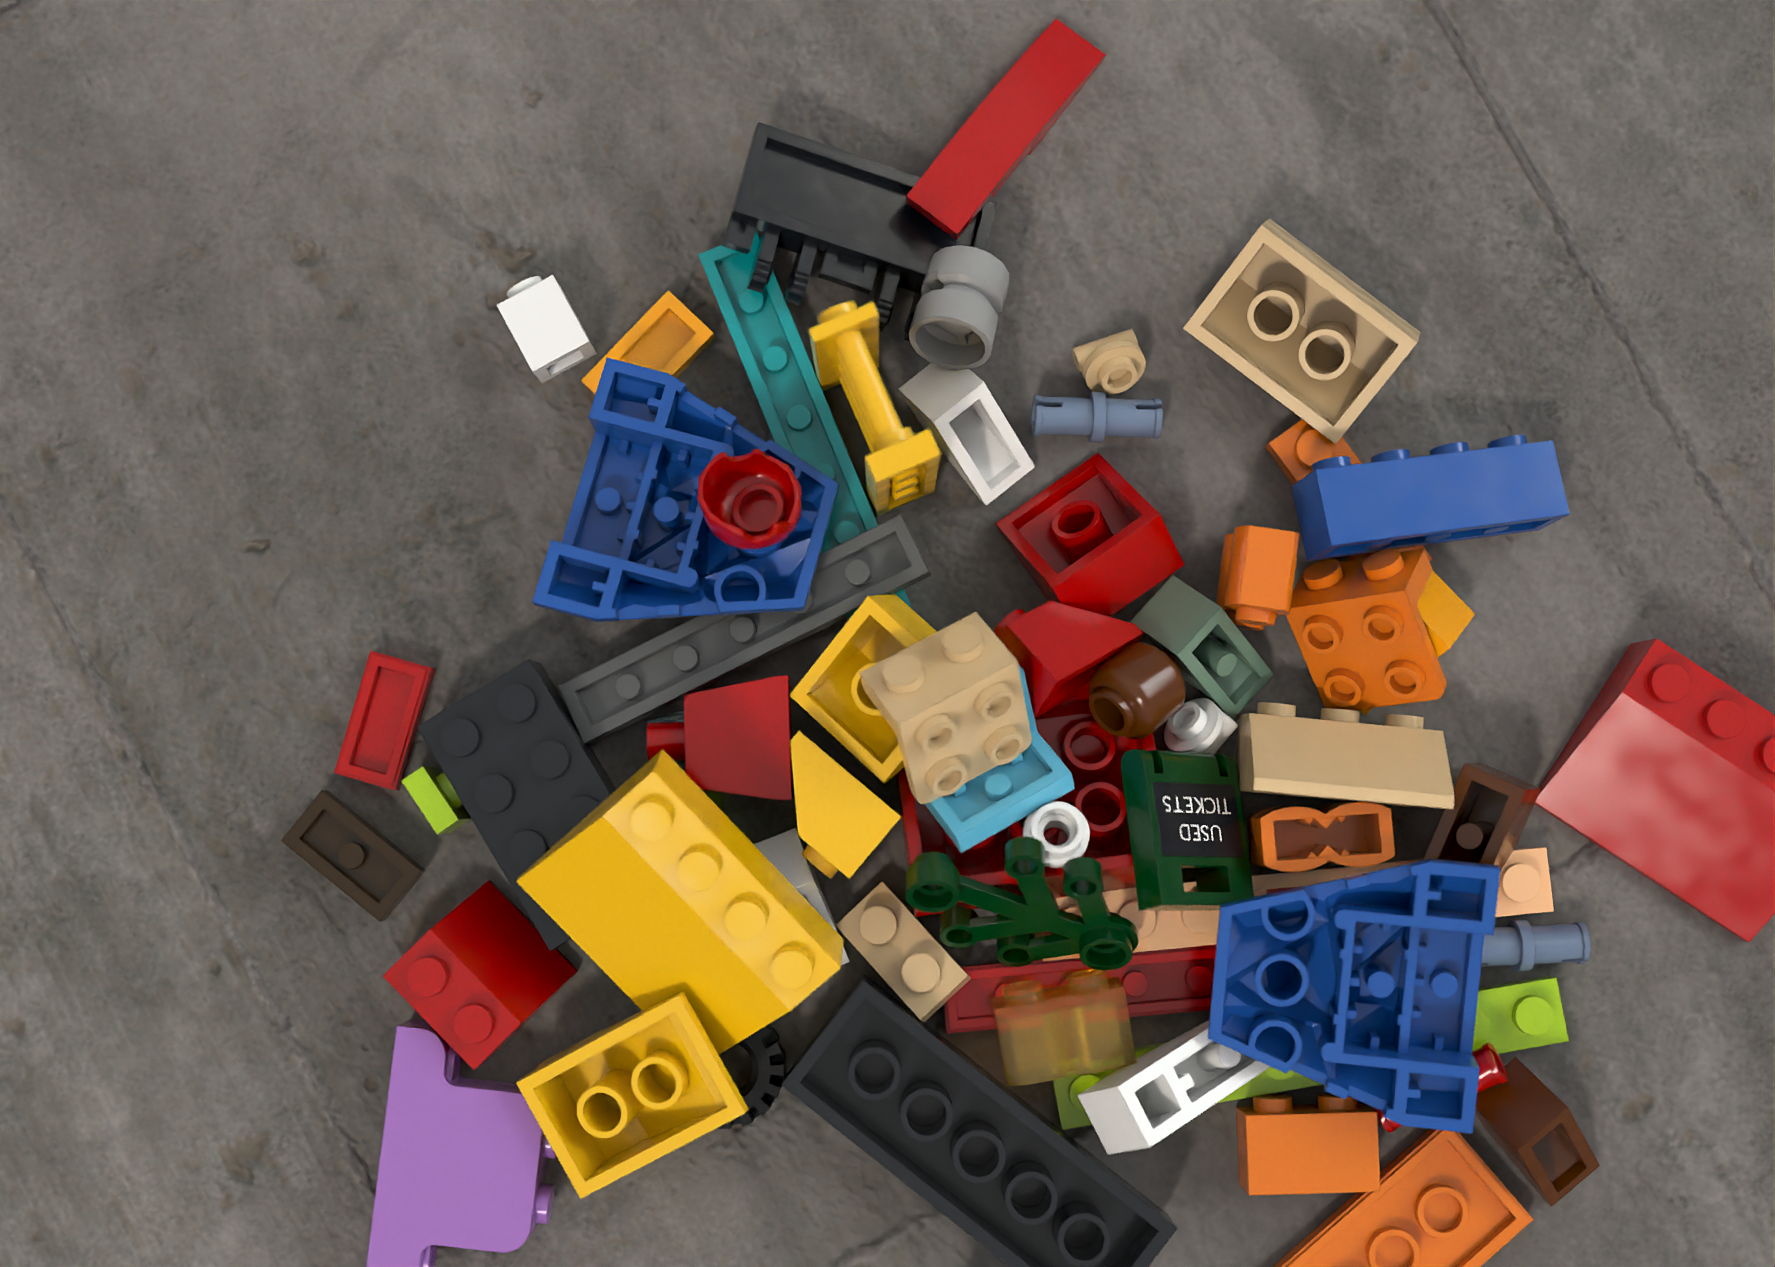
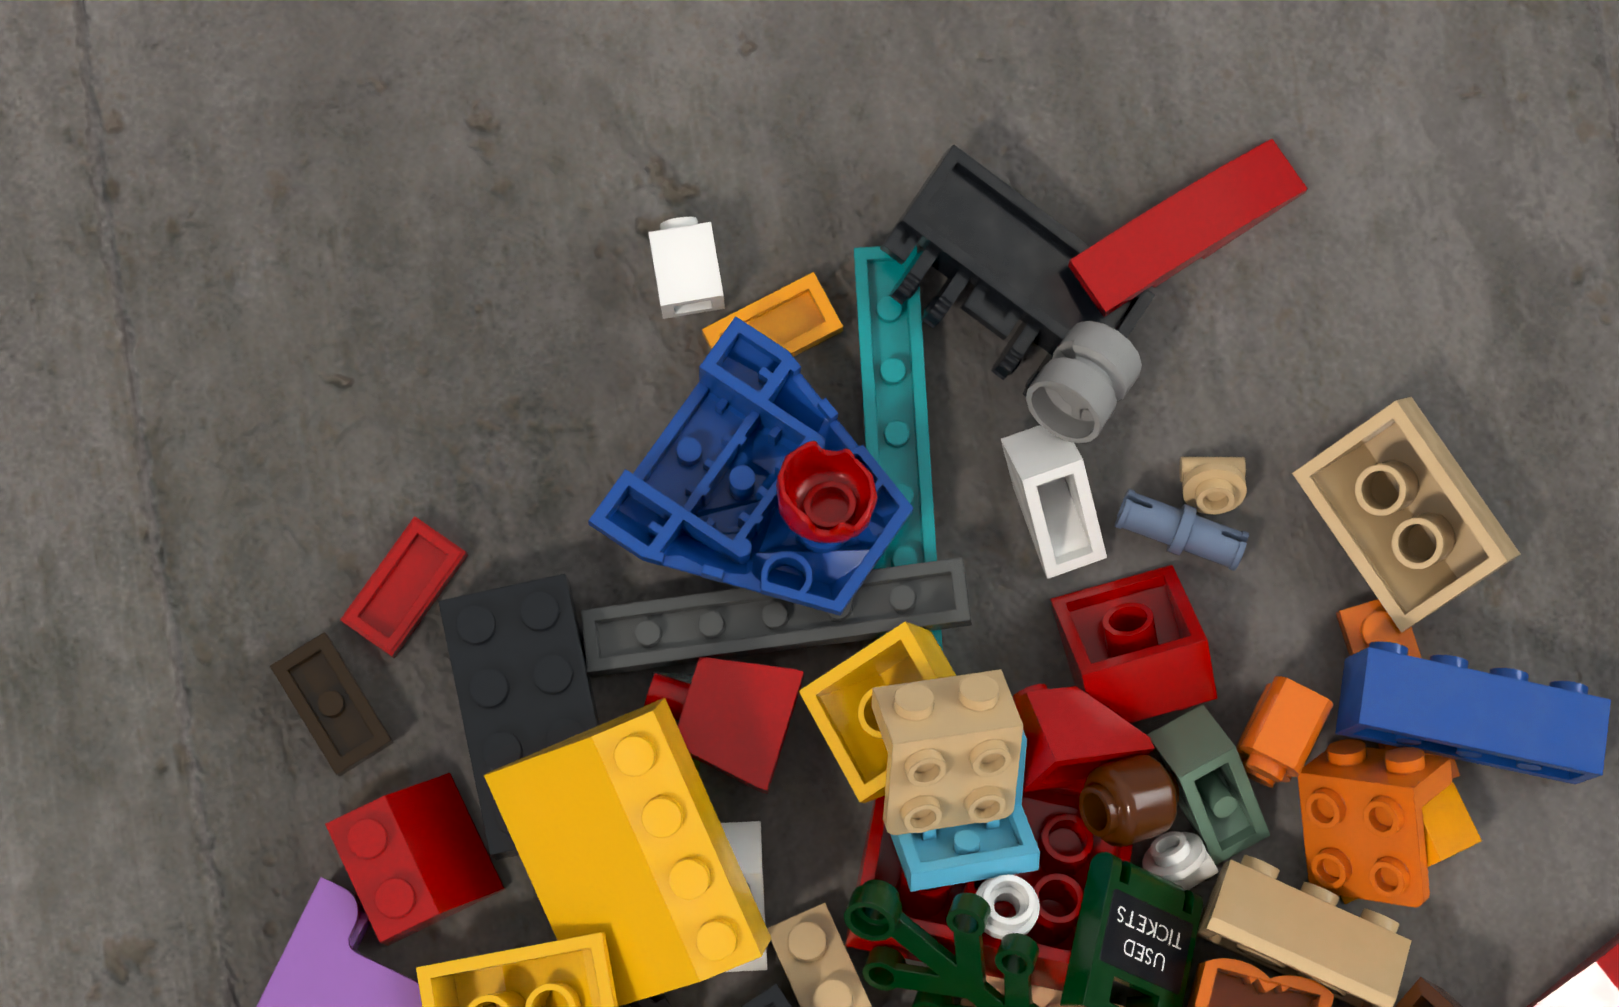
camera: 20 degrees right, 5 degrees down
(436, 799) = (431, 677): lime plate -> none
(835, 811) = (806, 816): yellow slope -> none
(848, 354) = (977, 509): yellow fence -> none

